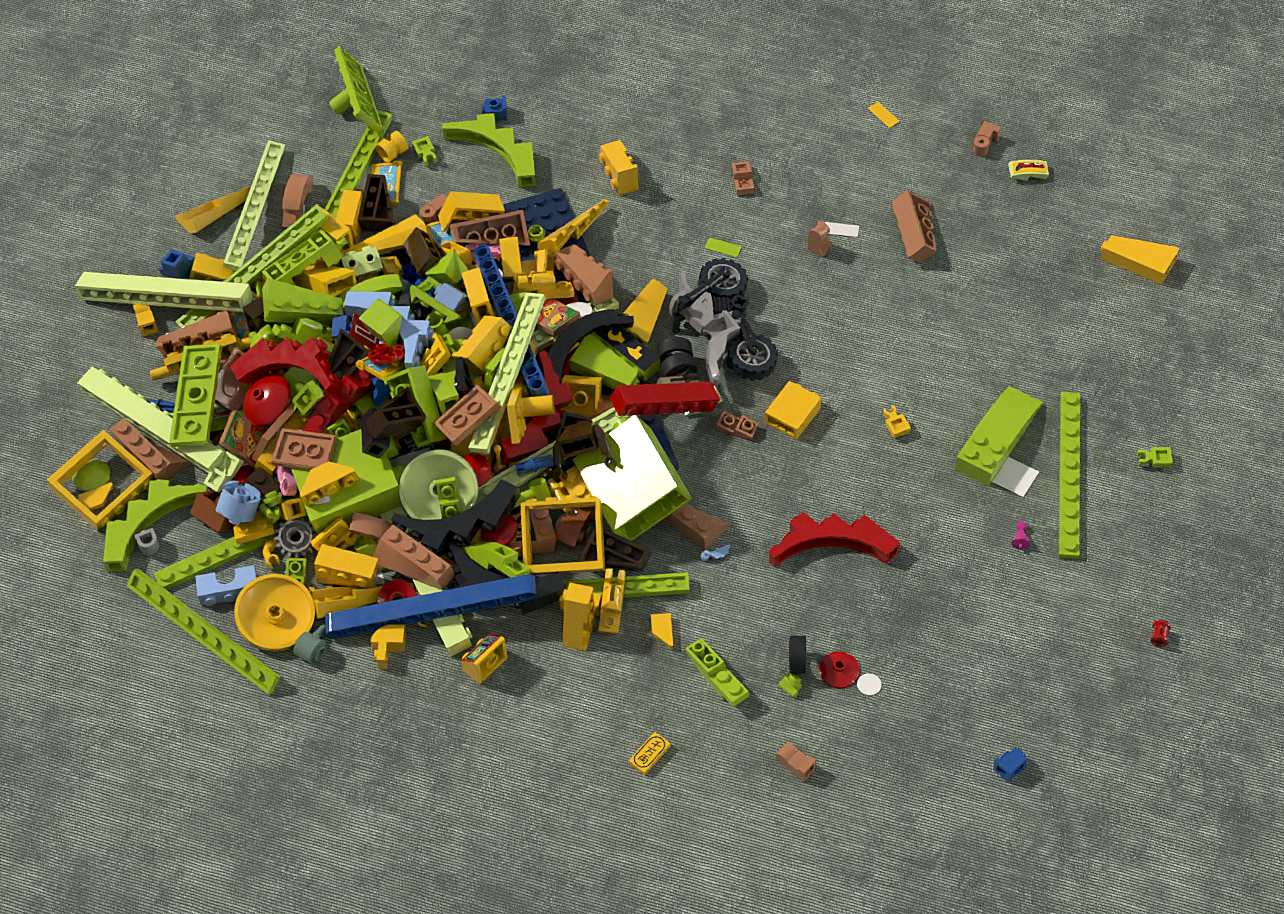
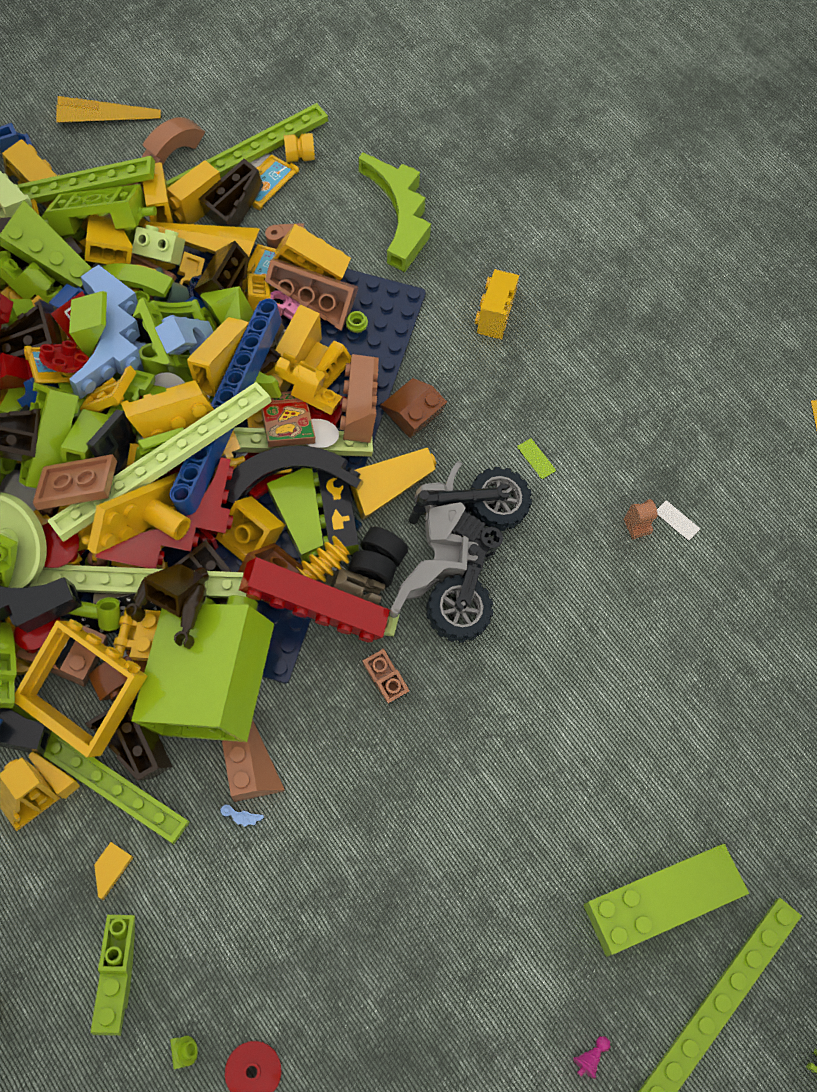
camera: 30 degrees right, 10 degrees up
(254, 206) = (121, 127): yellowish green plate -> none
(356, 92) = (310, 72): lime plate -> none
(425, 149) = (328, 169): lime plate -> none
(497, 106) = (430, 169): blue brick -> none
(534, 464) = (115, 581): blue axle -> none
(574, 229) = (400, 341): yellow wedge -> none
(612, 603) = (76, 799): yellow plate -> none
(621, 259) = (414, 406): none -> dark orange slope
(651, 371) = (325, 560): none -> yellow piece
(743, 178) = (616, 395): nougat slope -> none
(793, 410) = (457, 701): yellow brick -> none
(797, 654) = (211, 1025): black tyre -> none
(834, 532) = (410, 917): red arch -> none
(896, 423) = (557, 801): yellow plate -> none
(915, 225) = (760, 572): nougat wedge -> none
(1015, 476) = (646, 968): white sticker -> none

